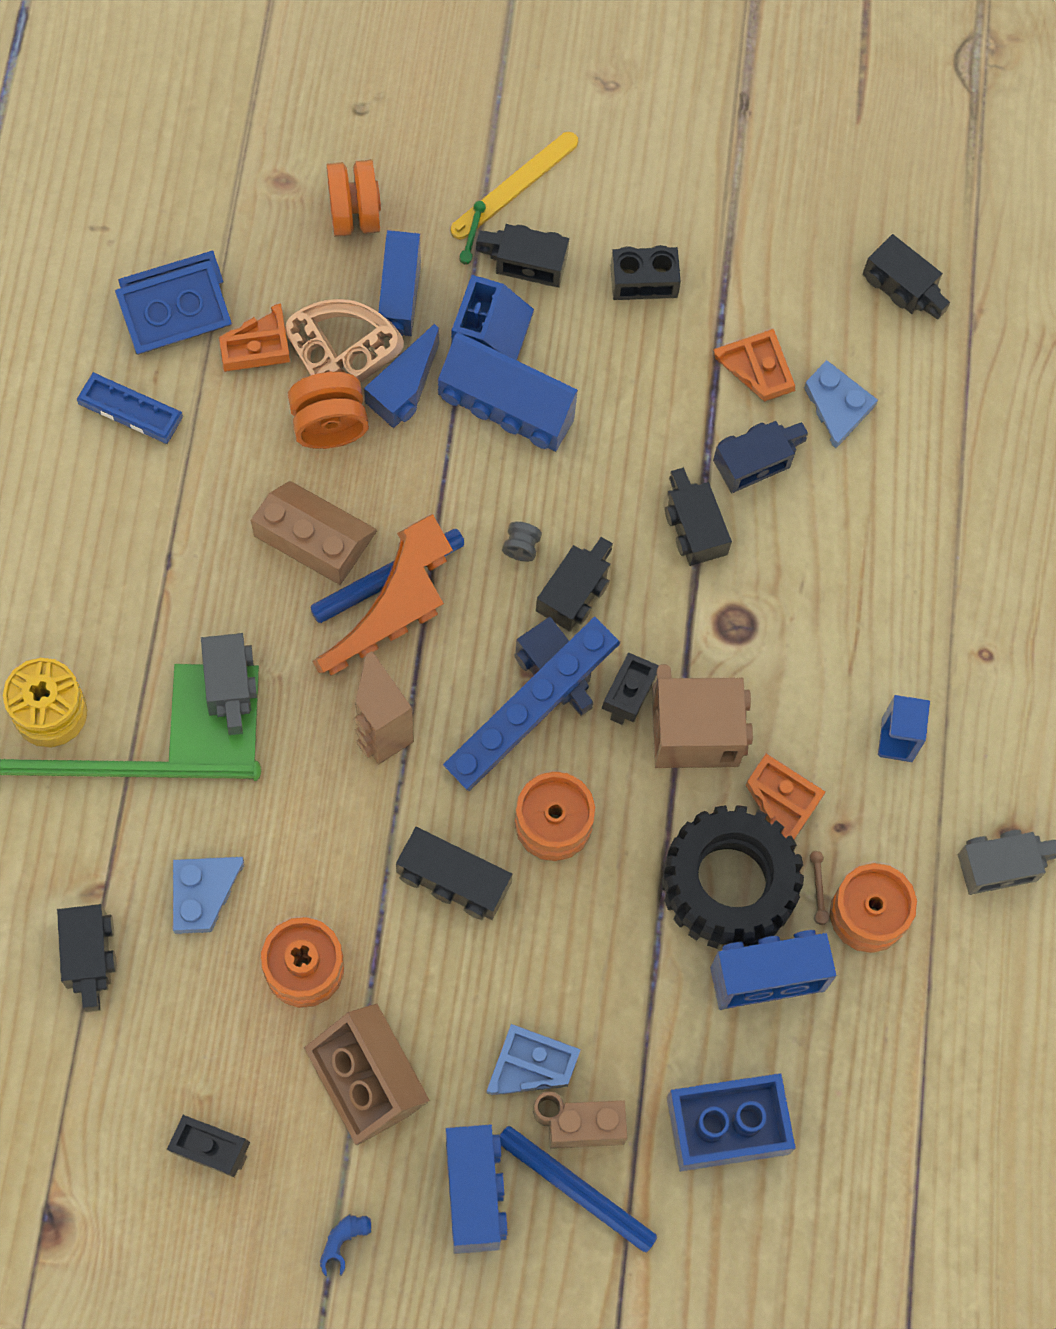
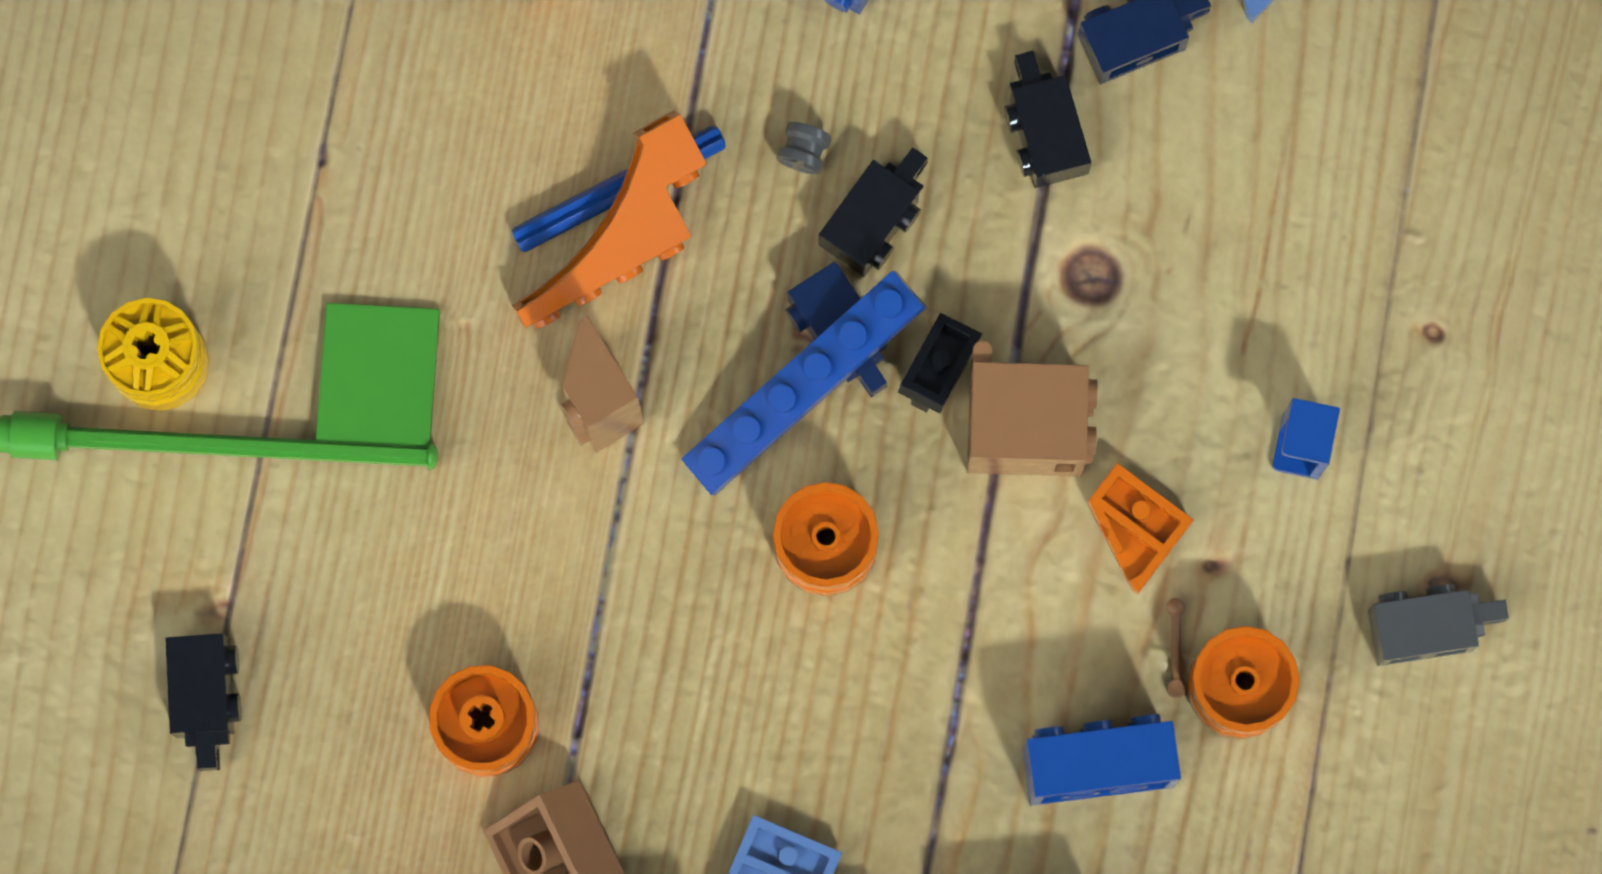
camera: 10 degrees right, 10 degrees up
(201, 891) = (355, 617): medium blue wing -> none
(227, 678) = (396, 330): dark grey hinge -> none
(311, 531) = (518, 119): medium nougat slope -> none
(453, 874) = (687, 611): black brick -> none
(745, 834) = (1068, 569): black tyre -> none

